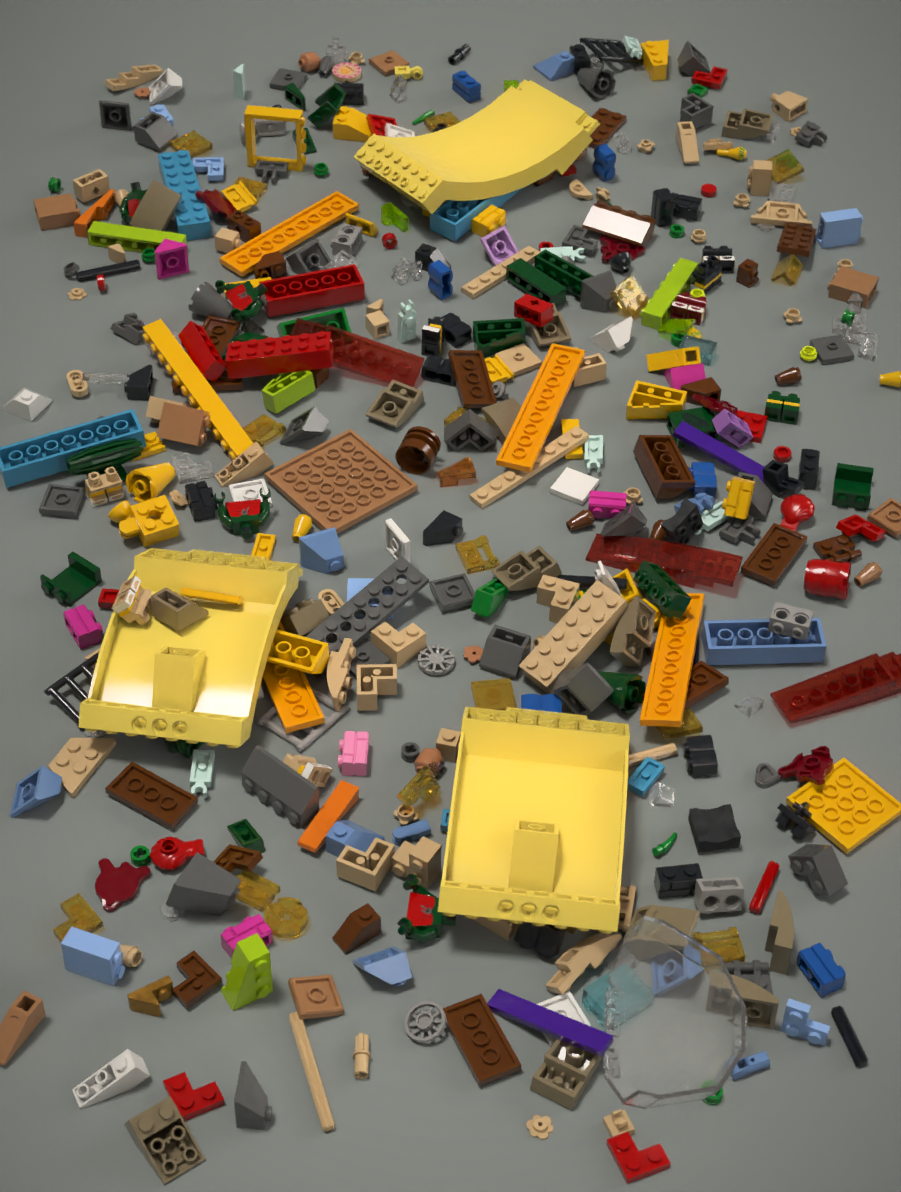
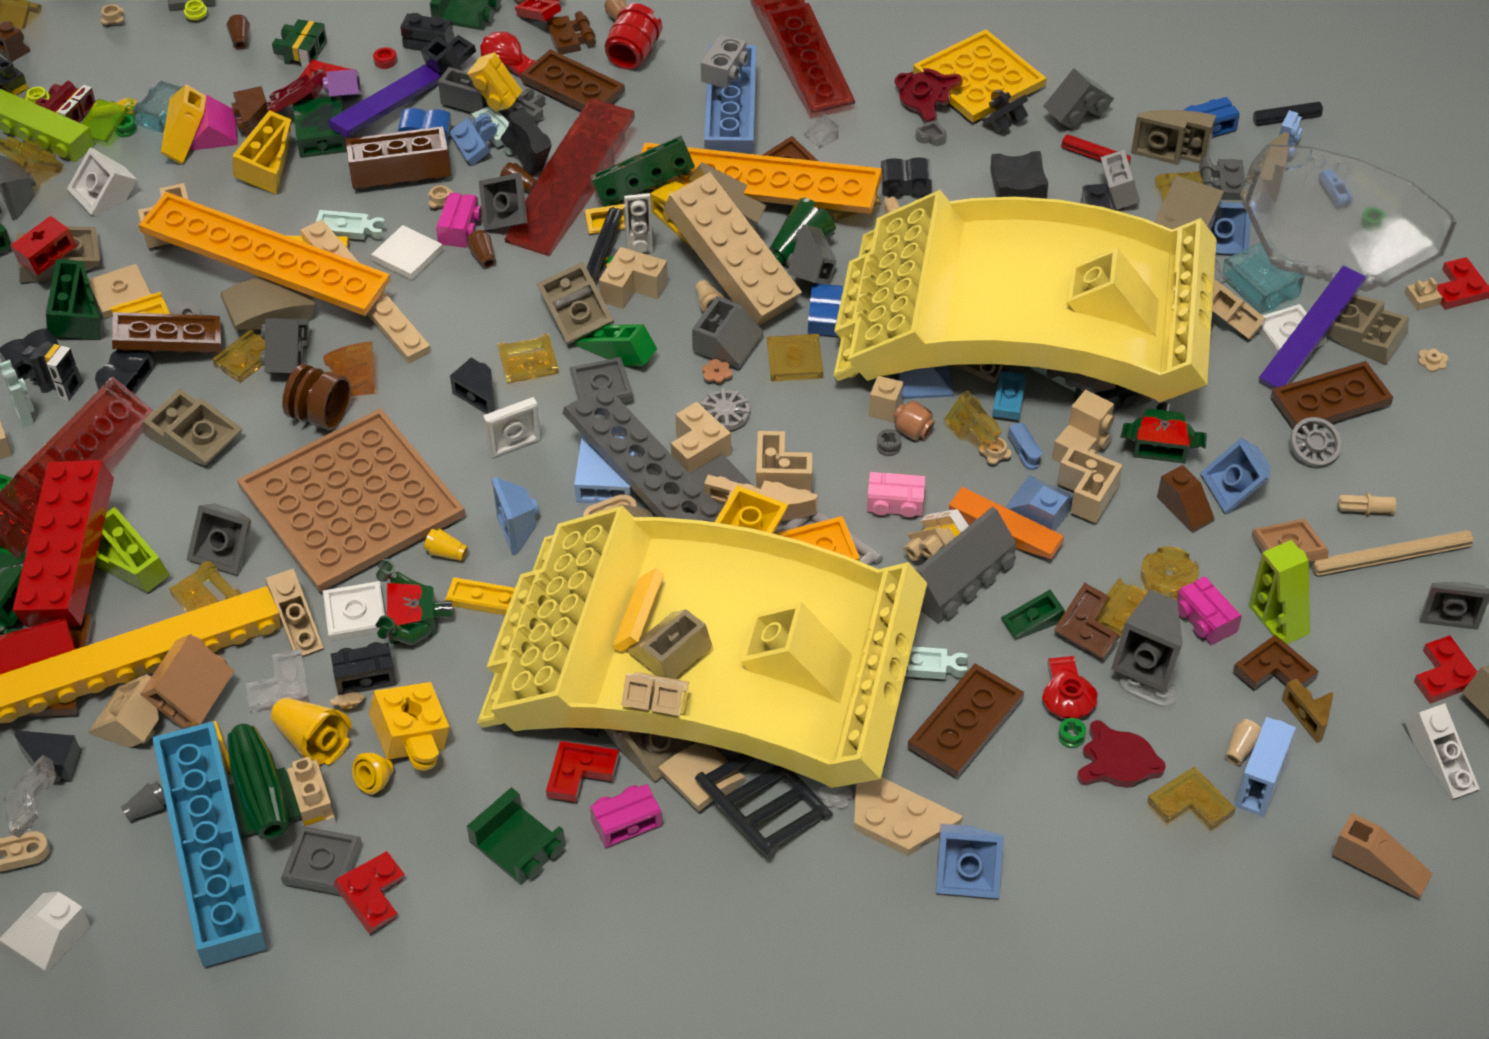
camera: 85 degrees left, 5 degrees up
(37, 517) = (364, 888): none -> red plate

